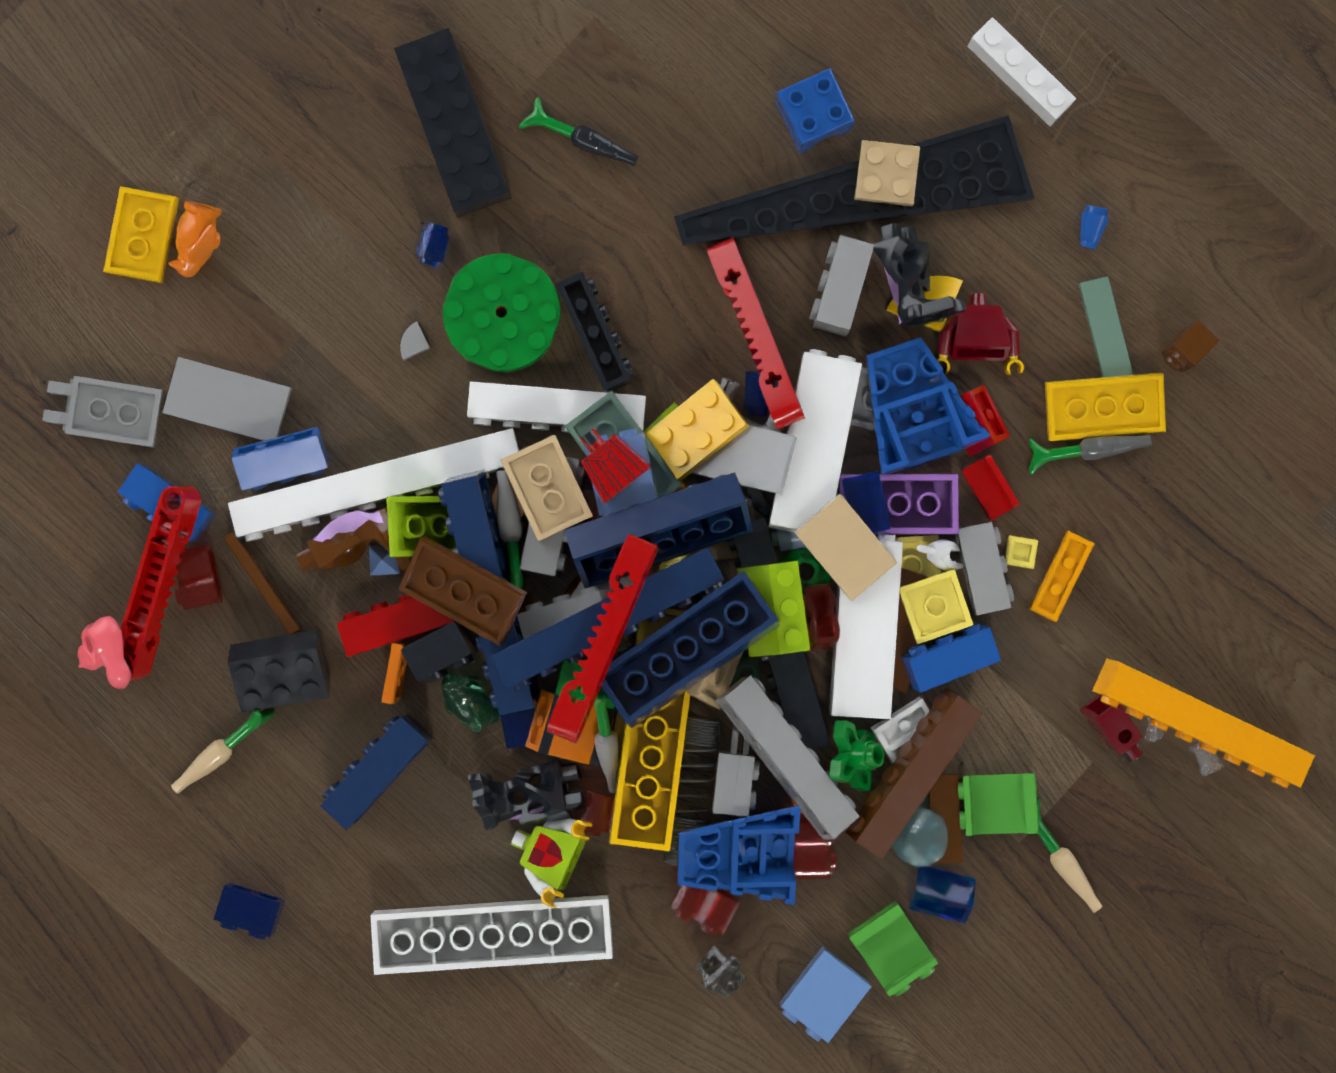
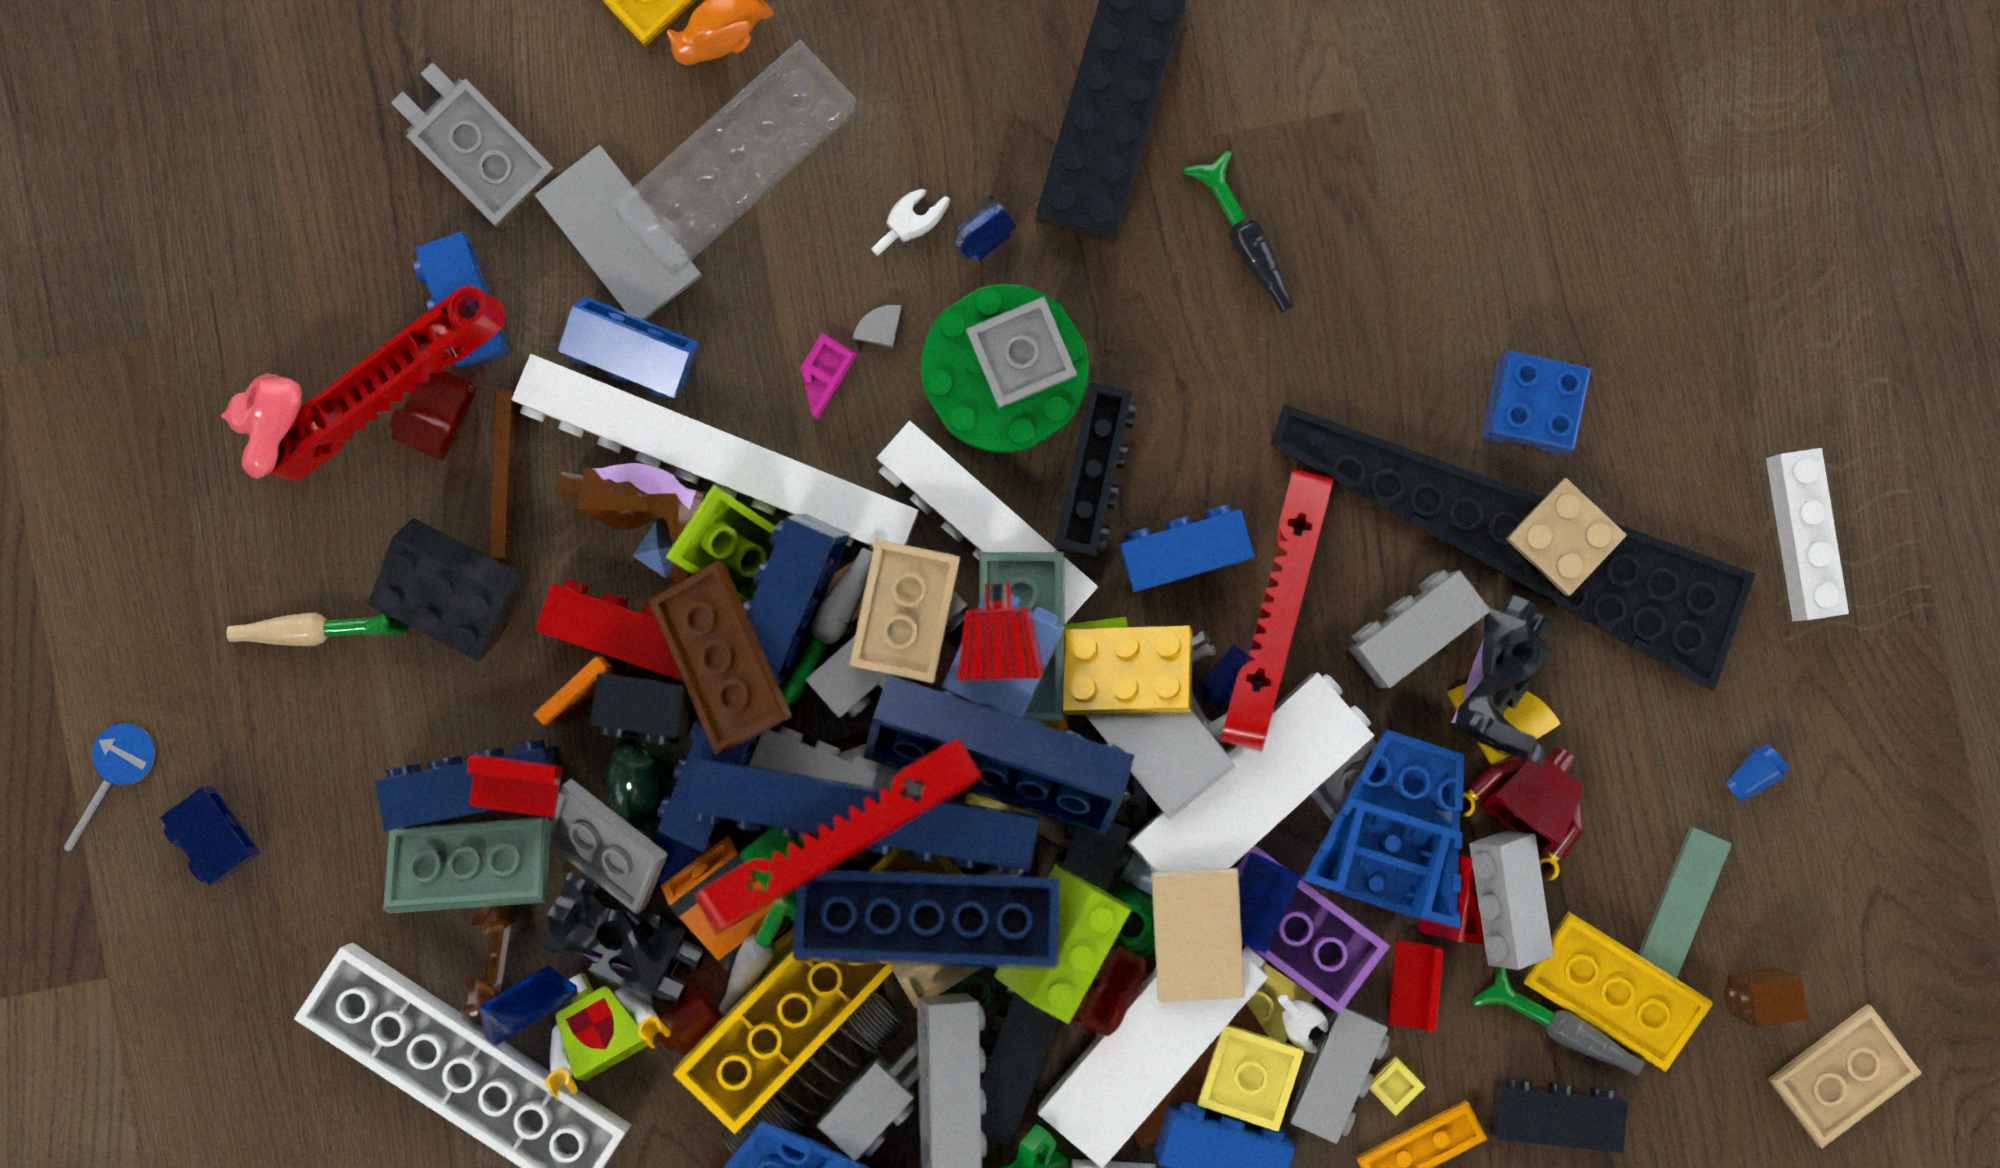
camera: 30 degrees right, 0 degrees up
(165, 904) = (120, 757): none -> blue piece
(261, 306) = (736, 157): none -> clear brick
(386, 272) = (908, 225): none -> white hand
(400, 749) = (514, 785): none -> red panel
(401, 390) = (825, 371): none -> dark pink tile
(407, 816) = (467, 865): none -> sand green tile
(471, 882) = (496, 921): none -> reddish brown piece
(477, 748) = (605, 847): none -> light grey tile
(498, 869) = (525, 1004): none -> clear blue panel
(504, 295) = (1021, 352): none -> light grey plate
(679, 338) = (1185, 548): none -> blue brick
(1007, 398) = (1511, 899): none -> light grey brick
(1124, 499) = (1559, 1115): none -> black brick
(1267, 359) = (1844, 1076): none -> tan tile

